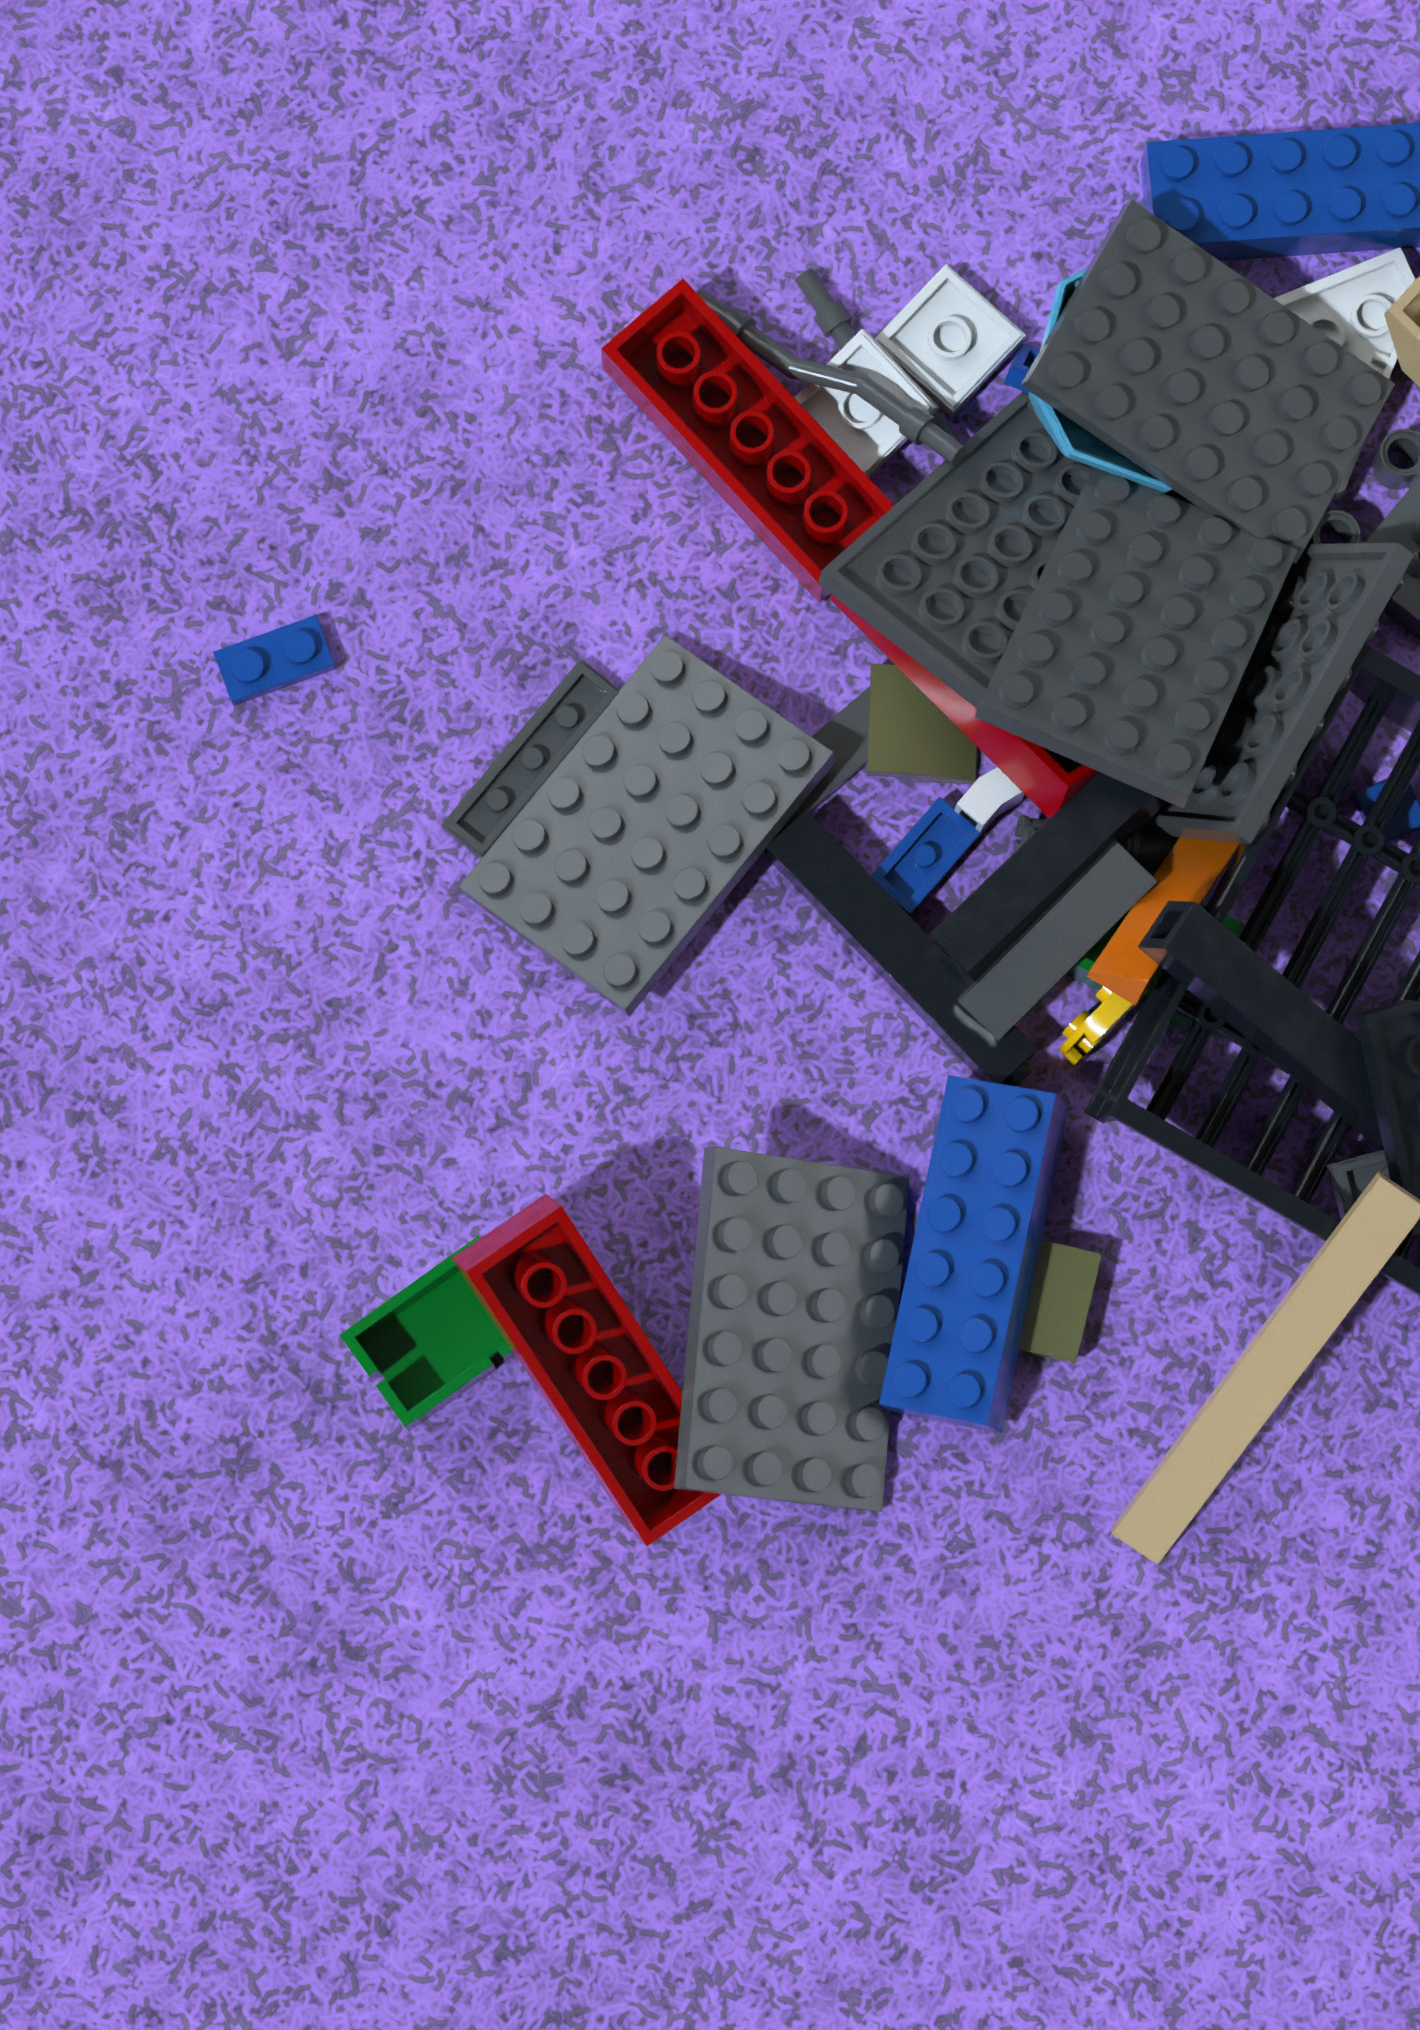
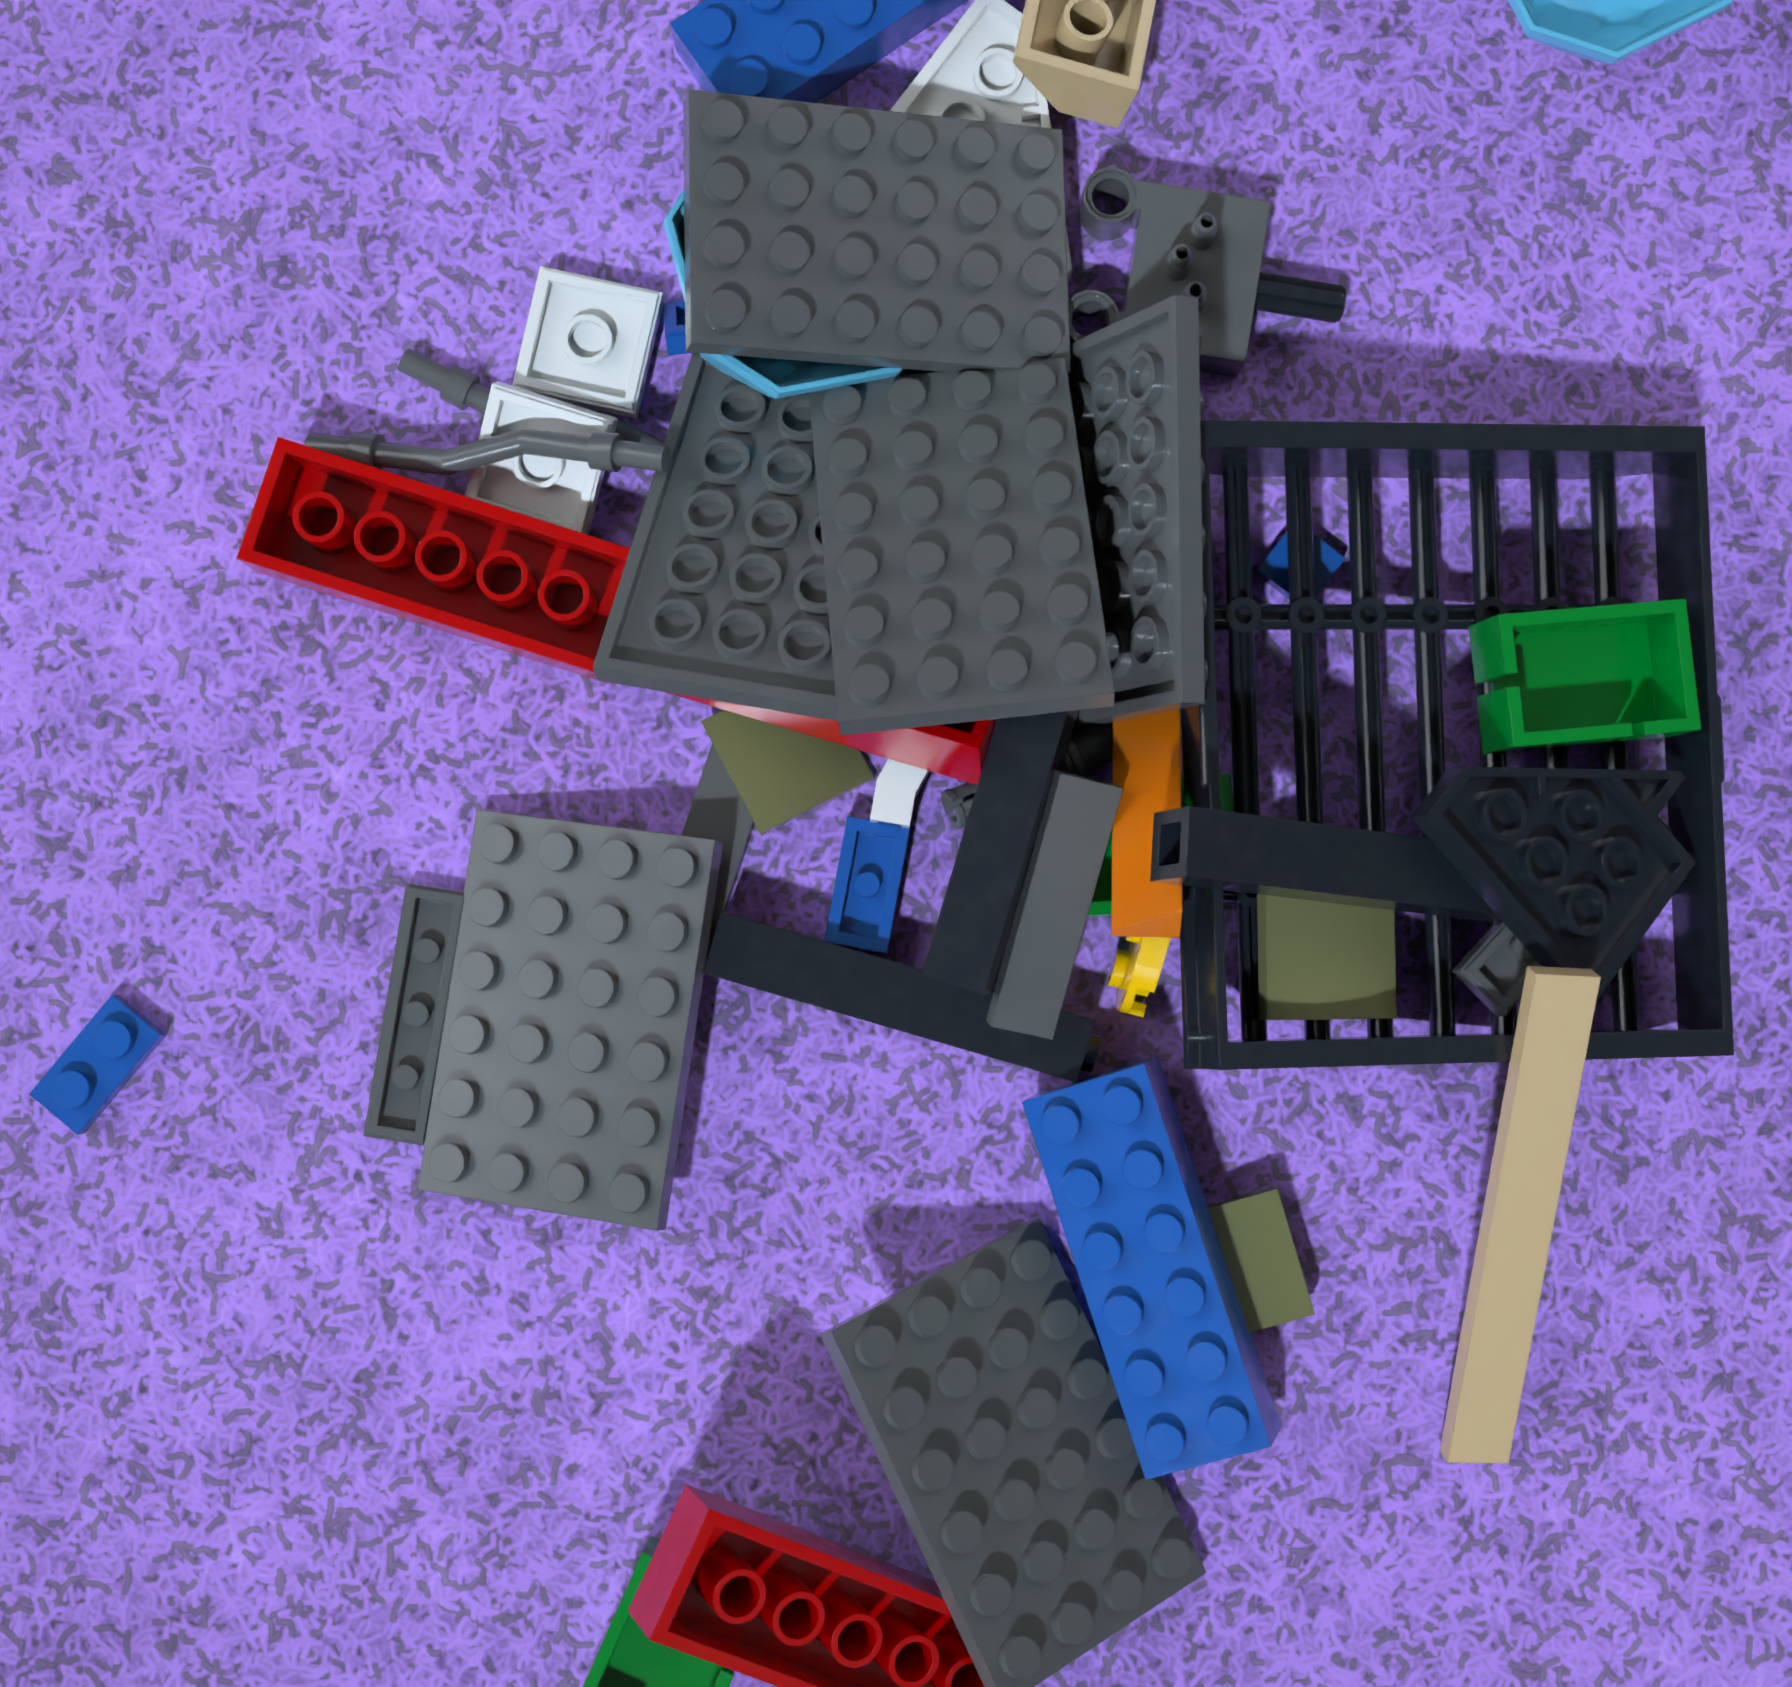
camera: 25 degrees left, 5 degrees up
(1234, 1094) = (1325, 960): none -> olive slope

